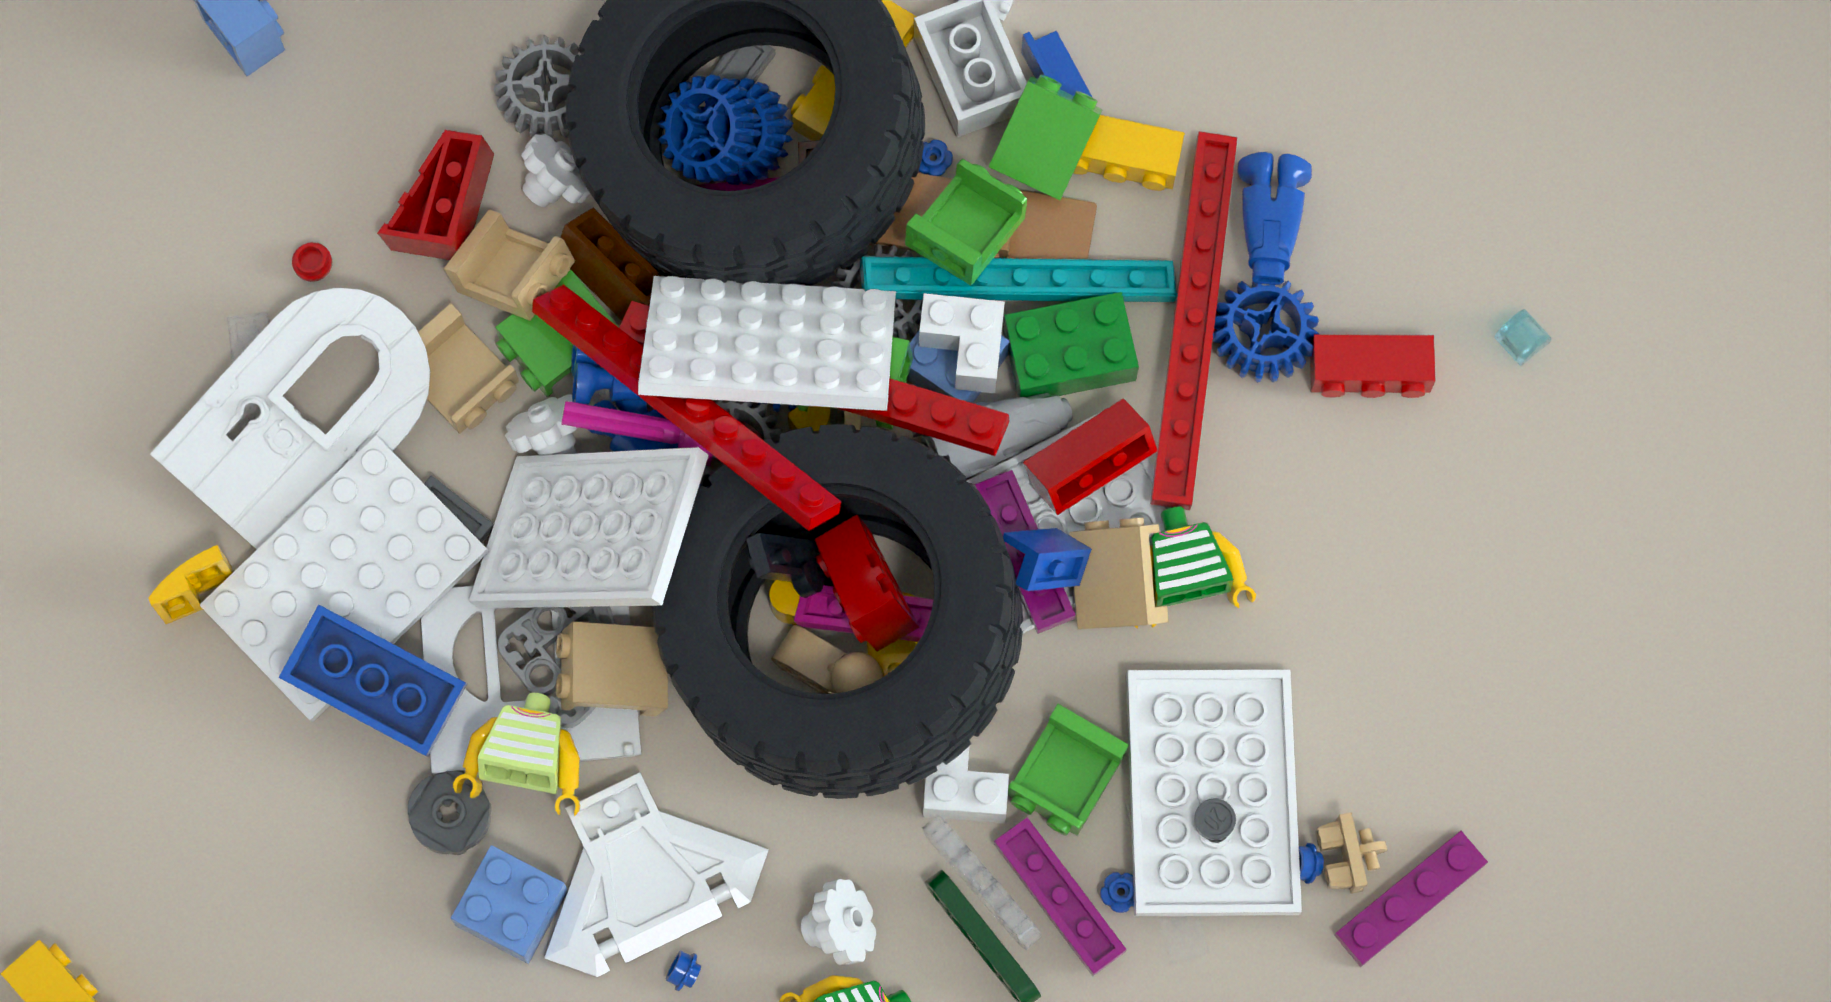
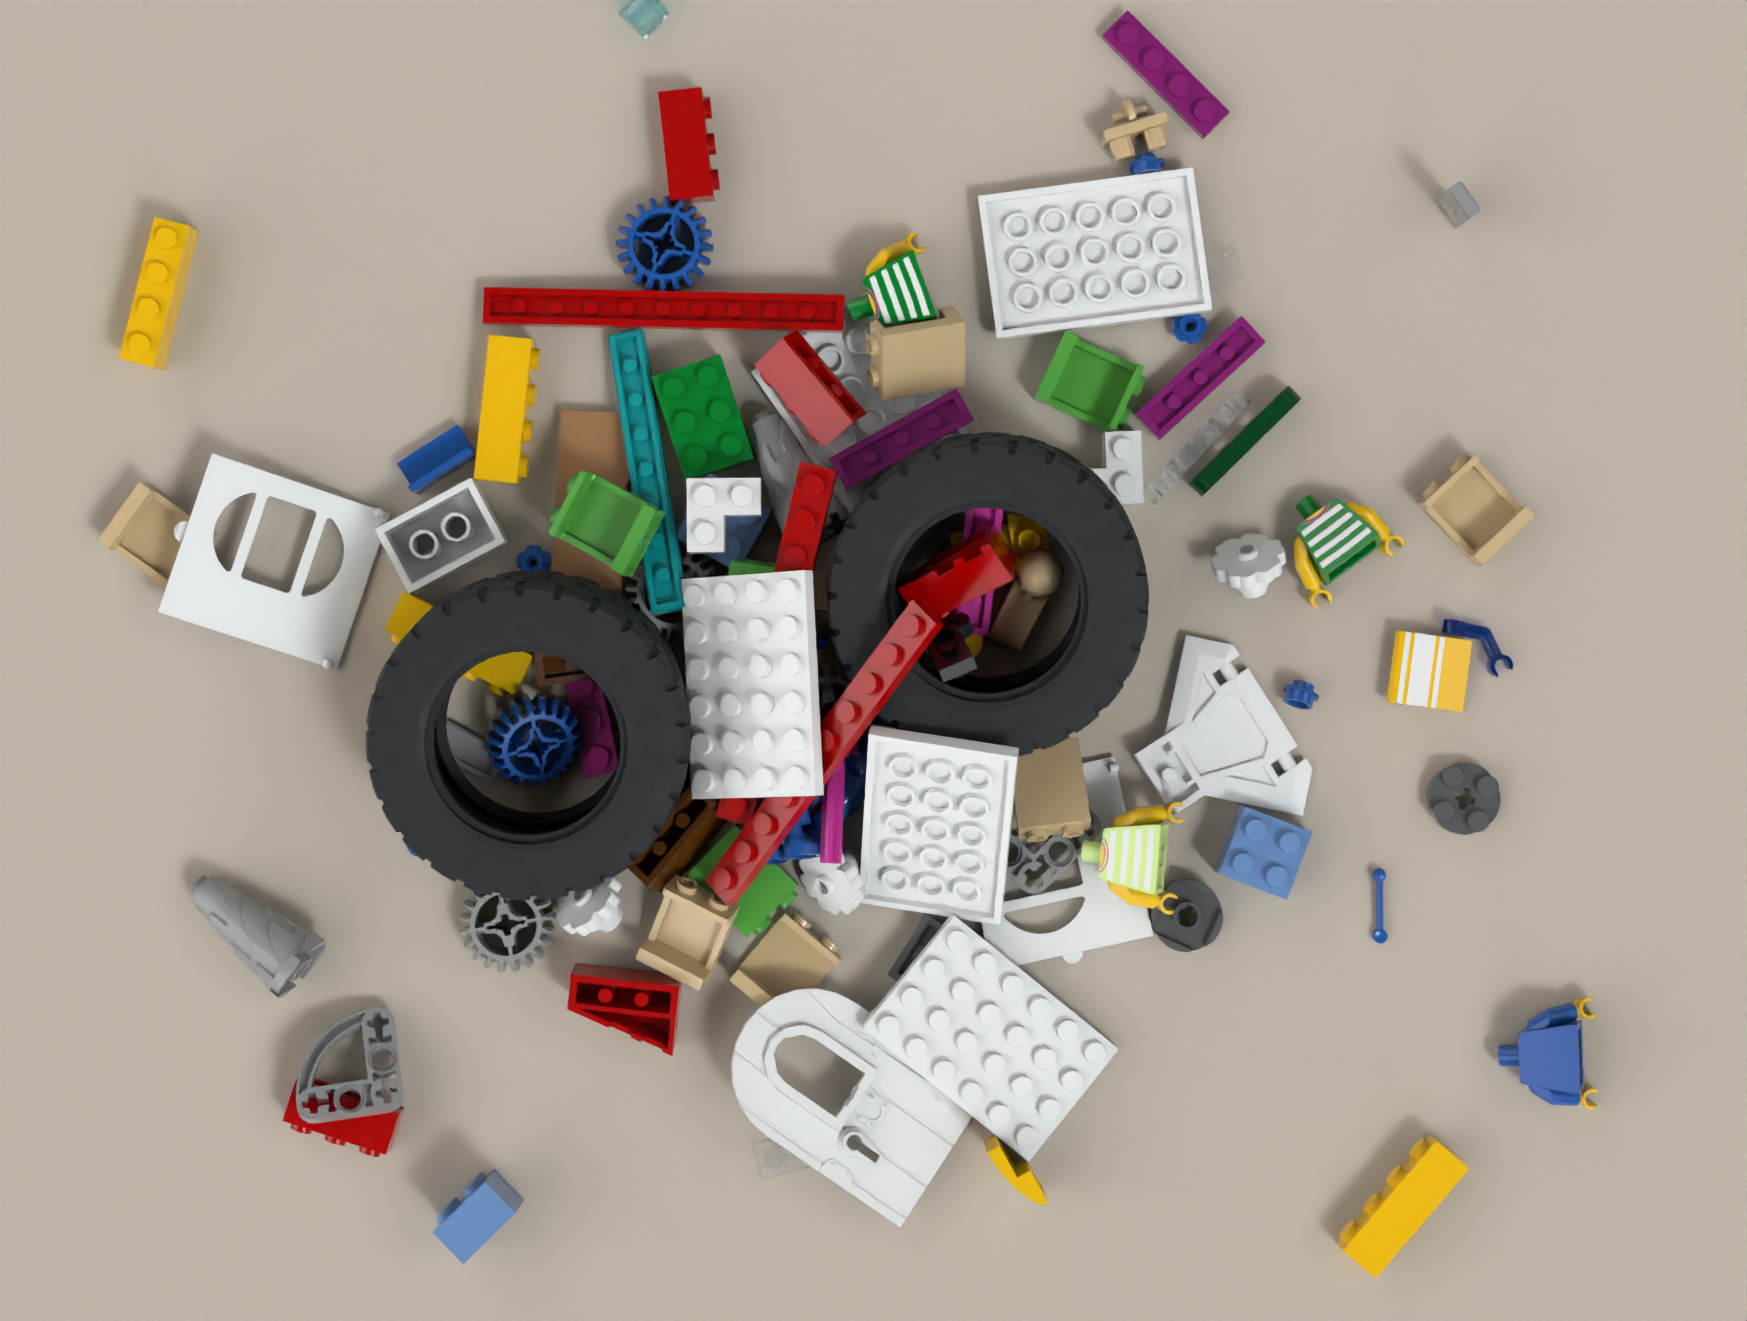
camera: 90 degrees left, 15 degrees up
(312, 262) = (697, 1112): red plate -> none
(373, 680) = (1088, 996): blue brick -> none
(729, 126) = (541, 748): blue gear -> none
(1046, 136) = (509, 459): bright green panel -> none
(1050, 558) = (913, 413): blue panel -> none
(1214, 819) = (1122, 249): dark grey piece -> none
(1270, 222) = (562, 248): blue piece -> none

